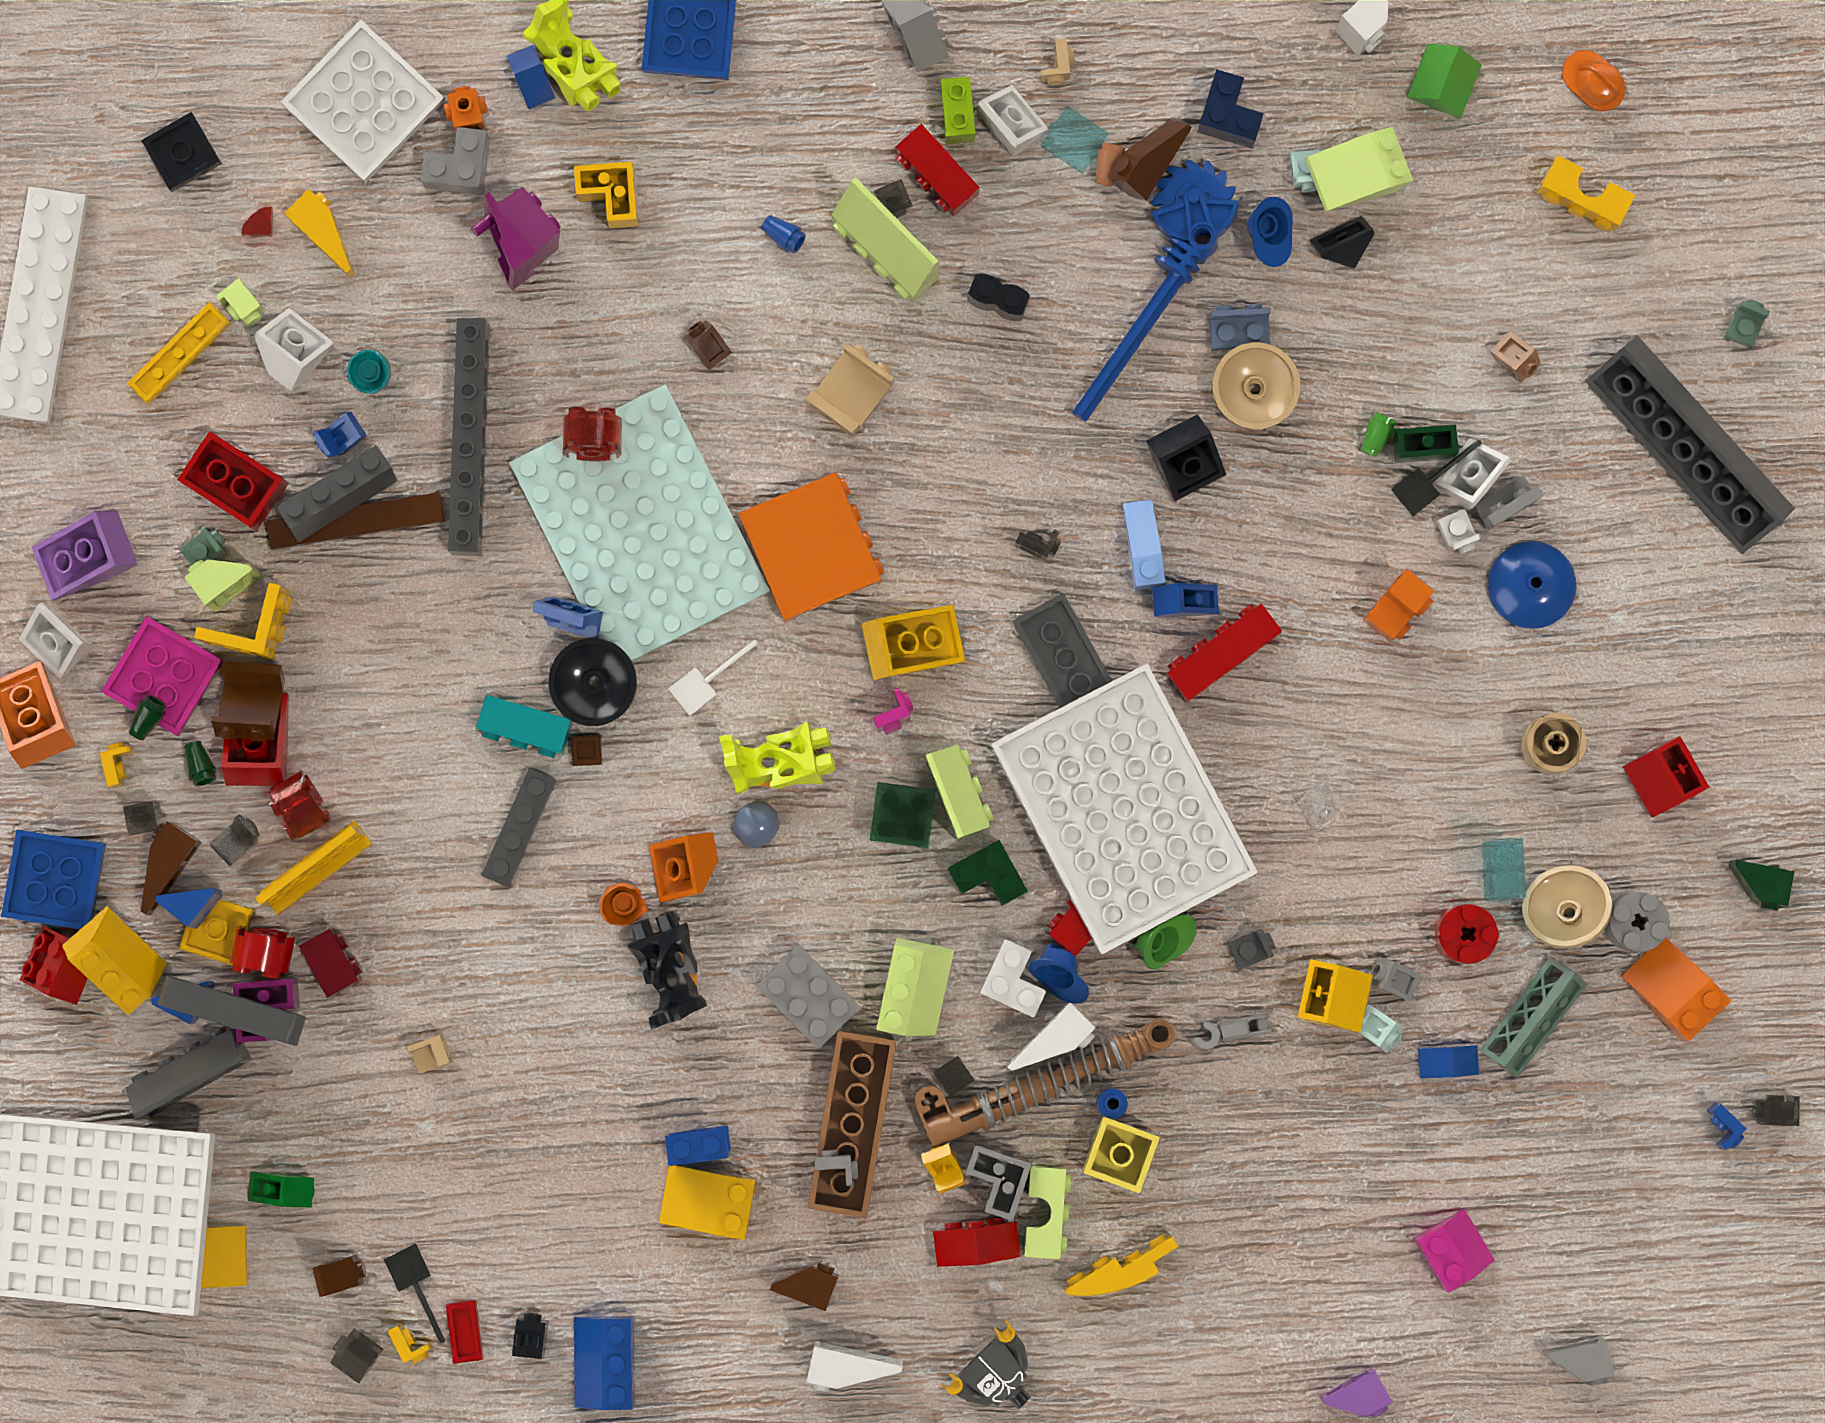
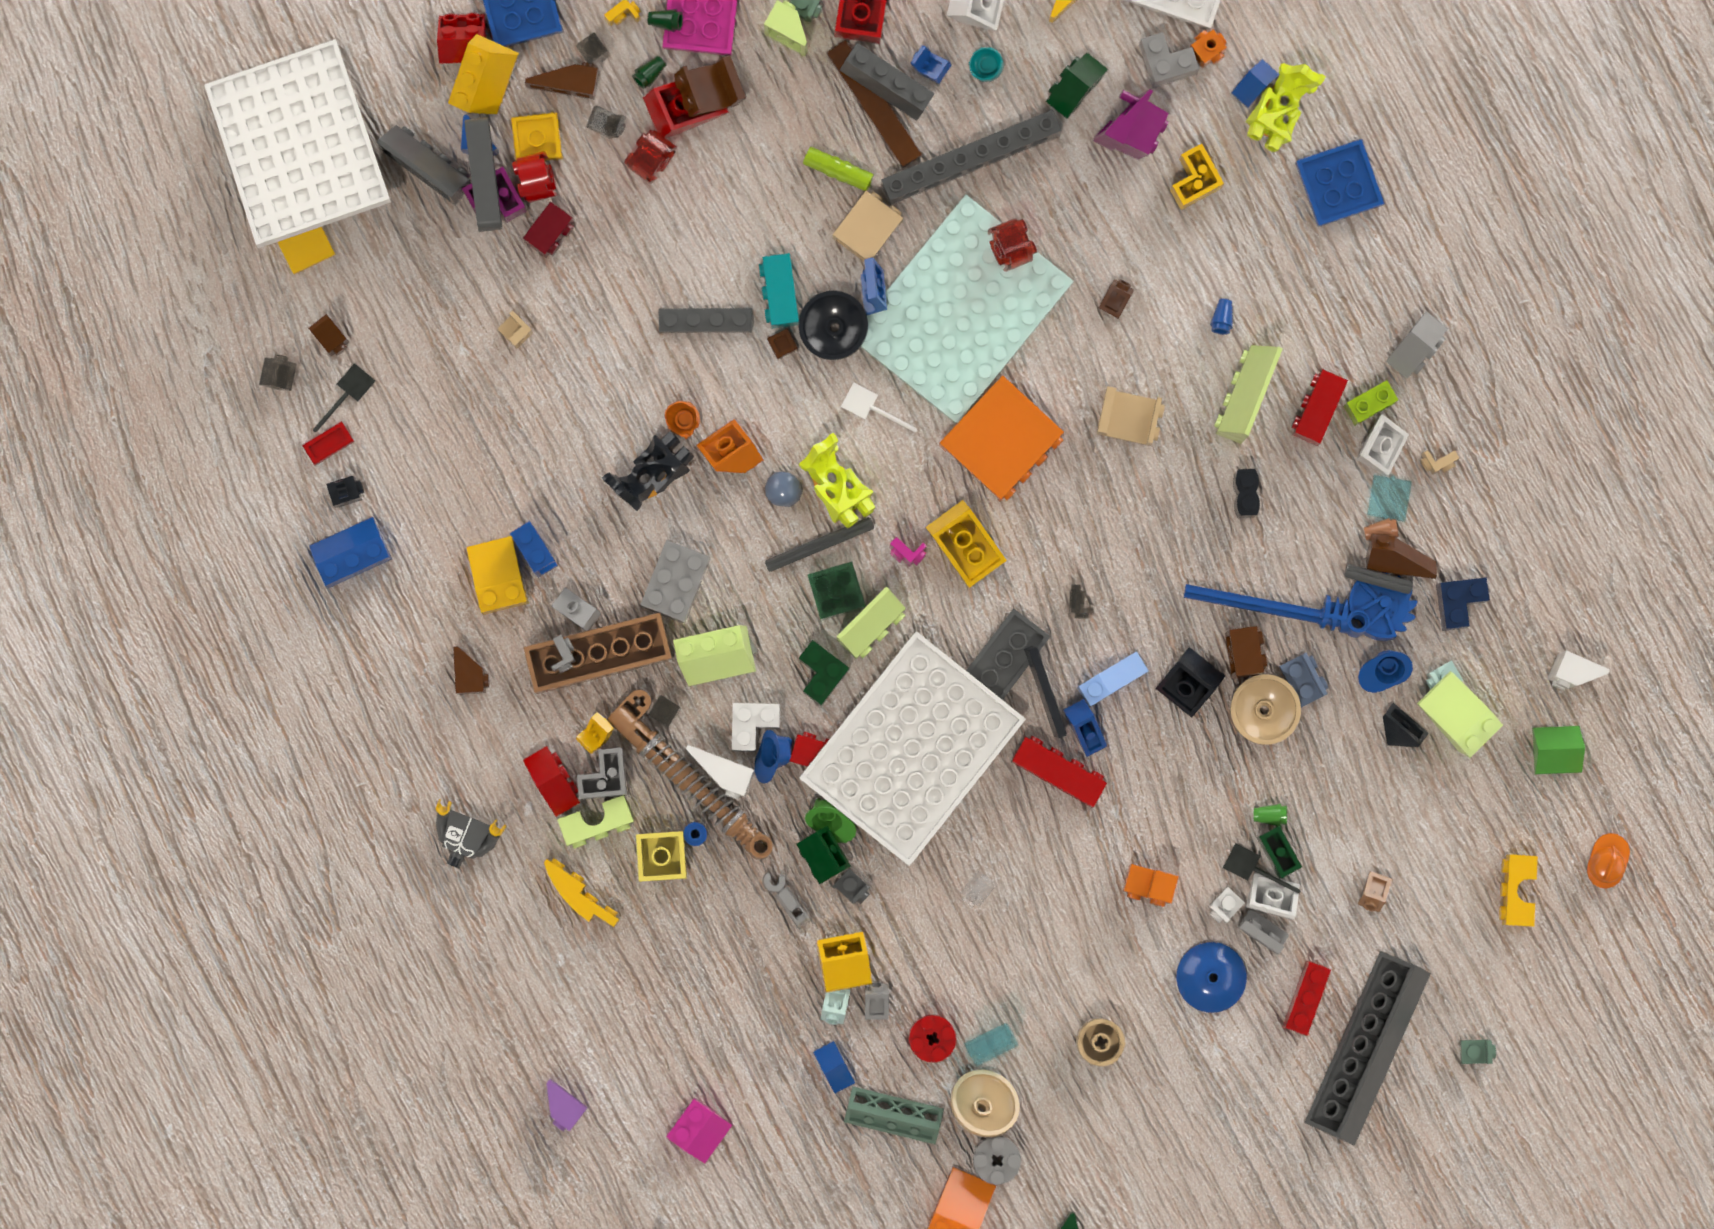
camera: 60 degrees right, 0 degrees up
(190, 906) = (544, 112): blue slope -> none
(269, 629) = (766, 78): yellow bracket -> none
(281, 1189) = (372, 268): green slope -> none
(314, 868) = (611, 188): yellow fence -> none
(403, 1341) = (301, 403): yellow bracket -> none
(413, 595) = (838, 169): none -> lime axle
(437, 275) = (1076, 83): none -> dark green brick
(495, 591) = (867, 226): none -> tan panel
(790, 1126) = (576, 609): none -> light grey brick
(839, 812) = (819, 544): none -> dark grey axle
(842, 1366) = (420, 720): white slope -> none
(894, 198) = (1282, 385): clear smoke brick -> none
(1125, 627) = (1045, 691): none -> black tile
(1163, 191) = (1378, 579): none -> dark grey axle
(1181, 379) = (1245, 652): none -> reddish brown brick
(1201, 966) = (823, 855): none -> dark green brick
(1604, 487) = (1306, 998): none -> red brick
(1665, 776) = (1112, 1135): red slope -> none

